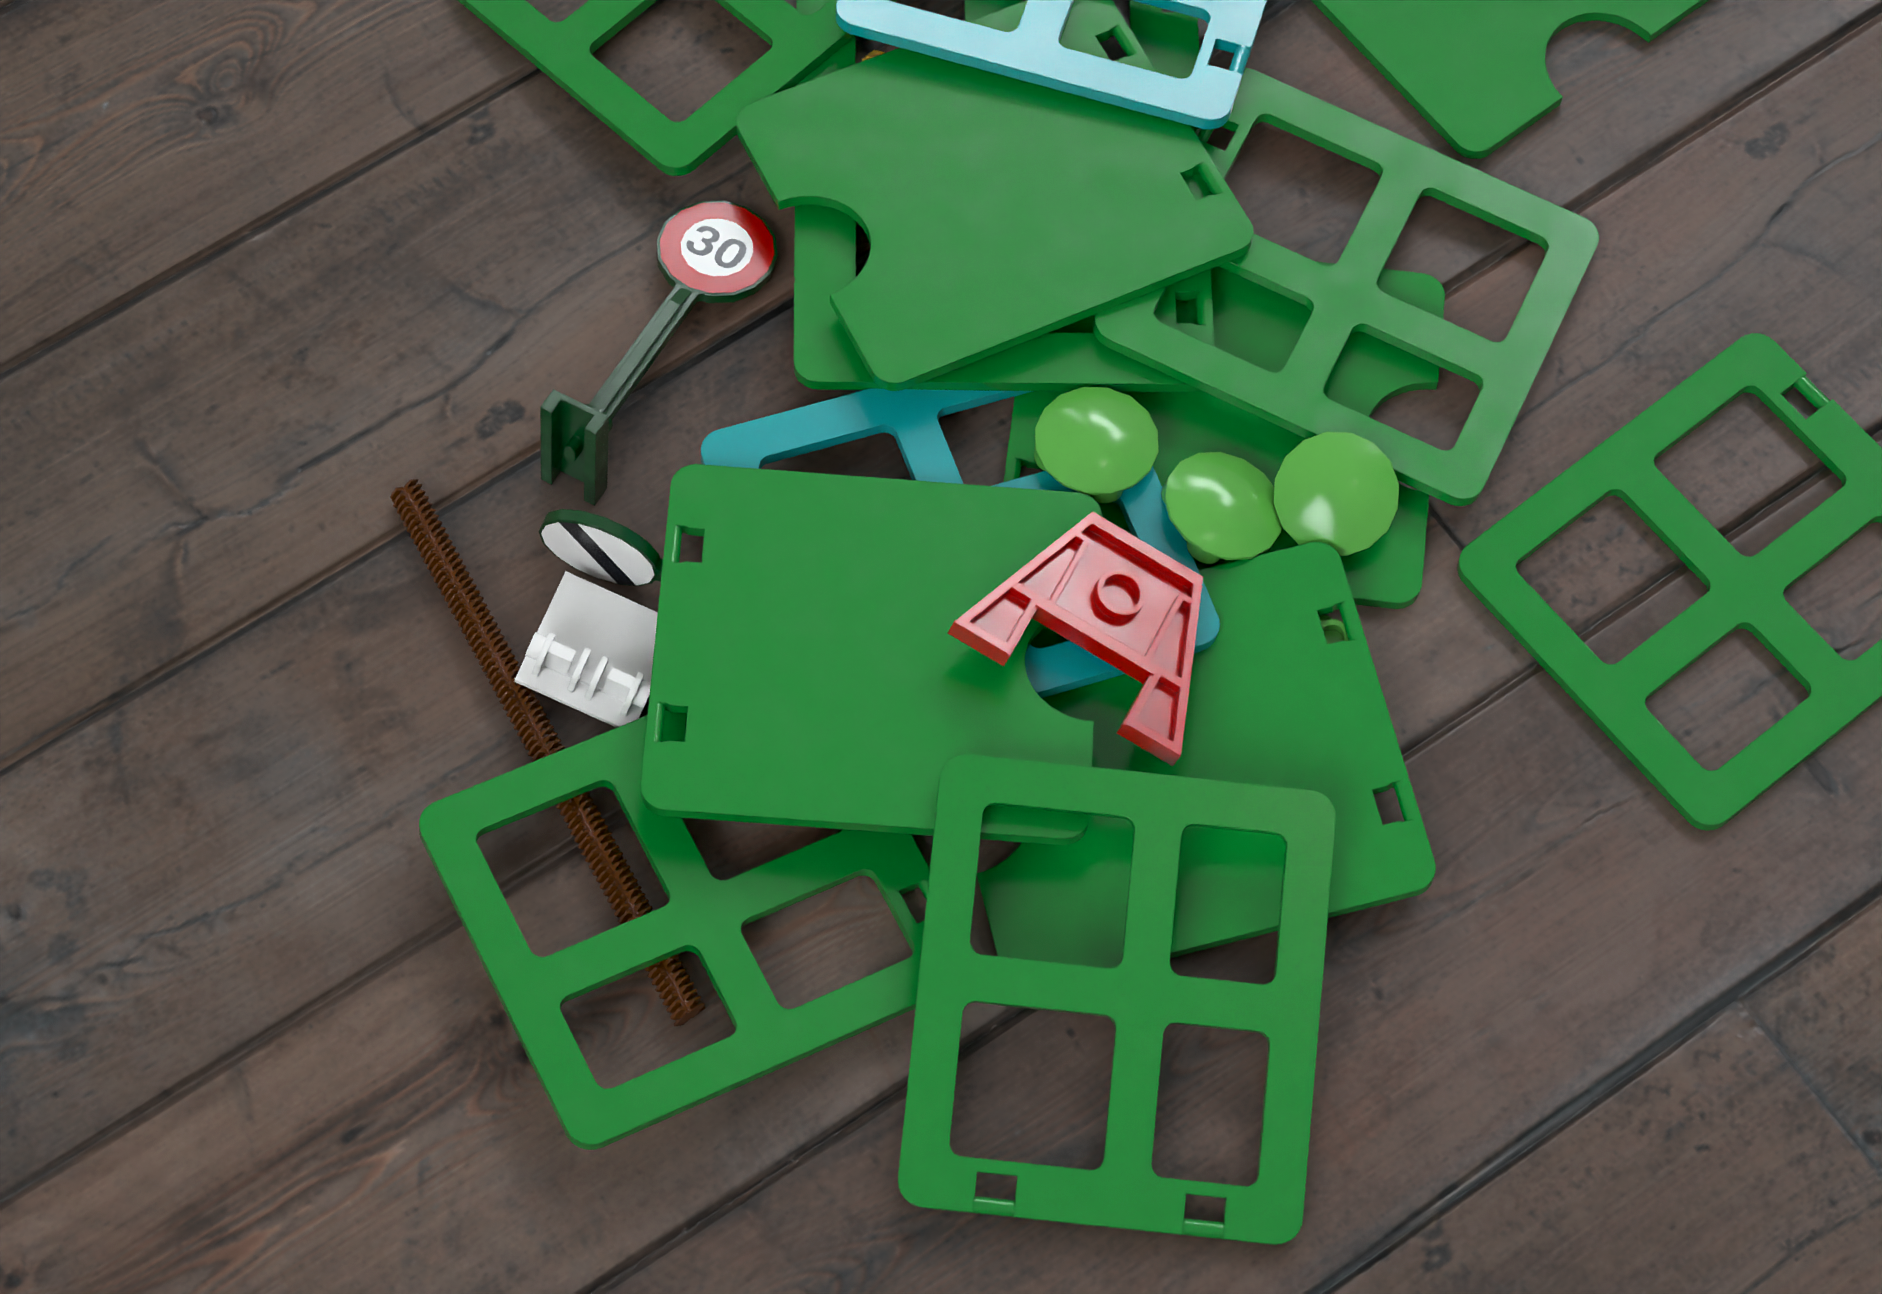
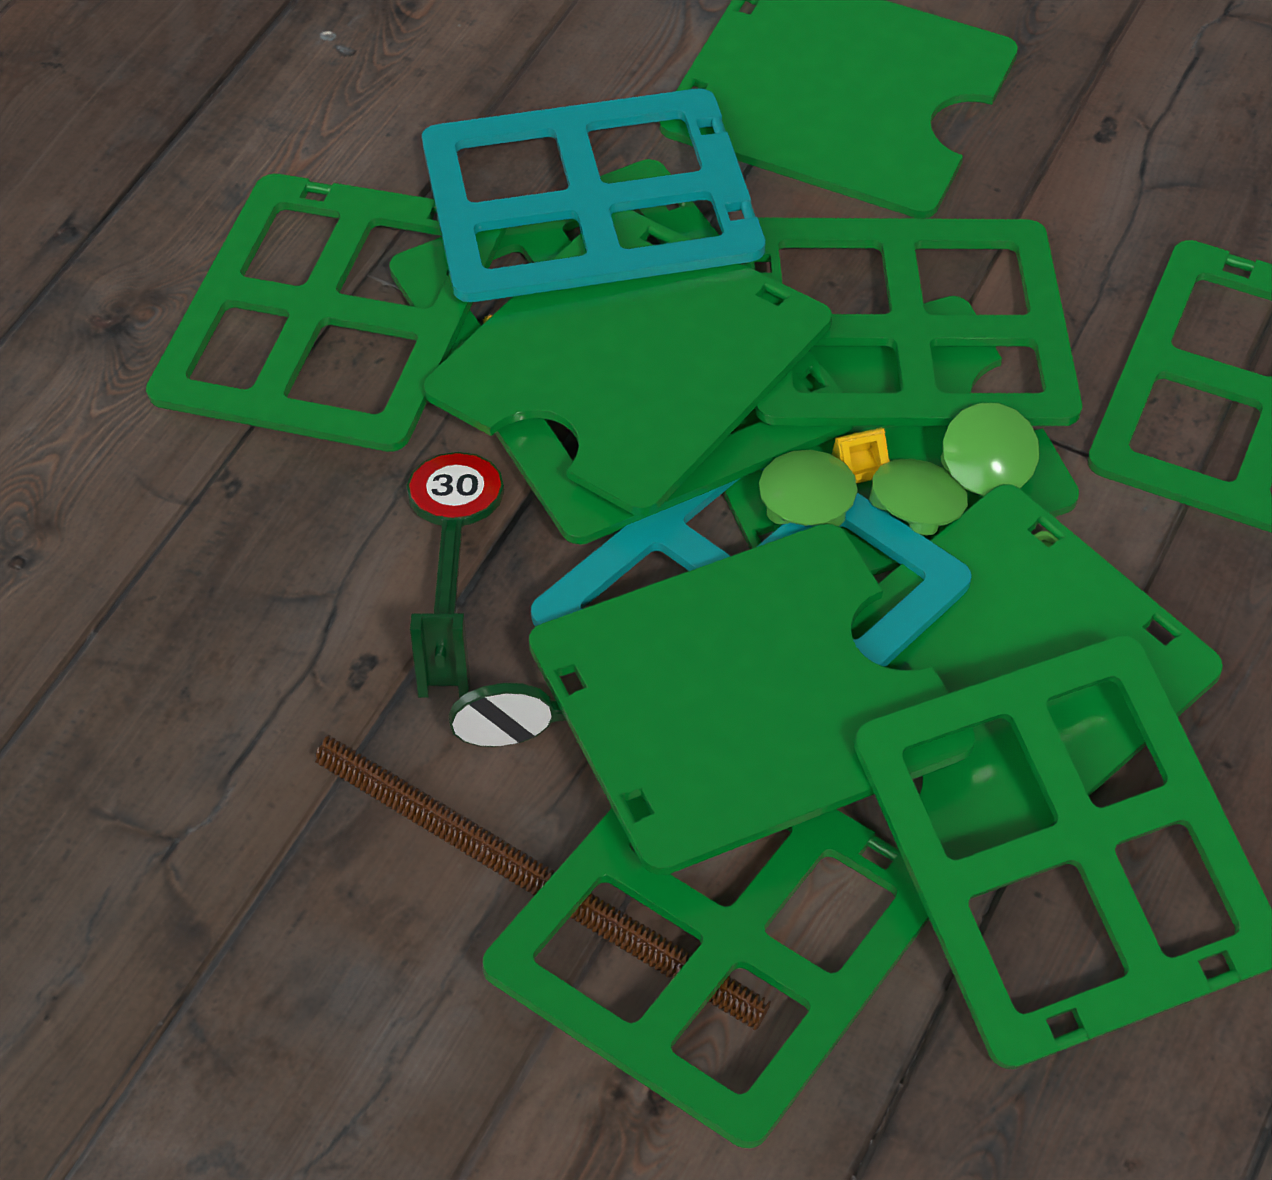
camera: 25 degrees left, 10 degrees down
(593, 652) = (538, 793): white hinge -> none
(1113, 602) = (907, 581): wing -> none
(1188, 428) = (862, 452): none -> yellow slope

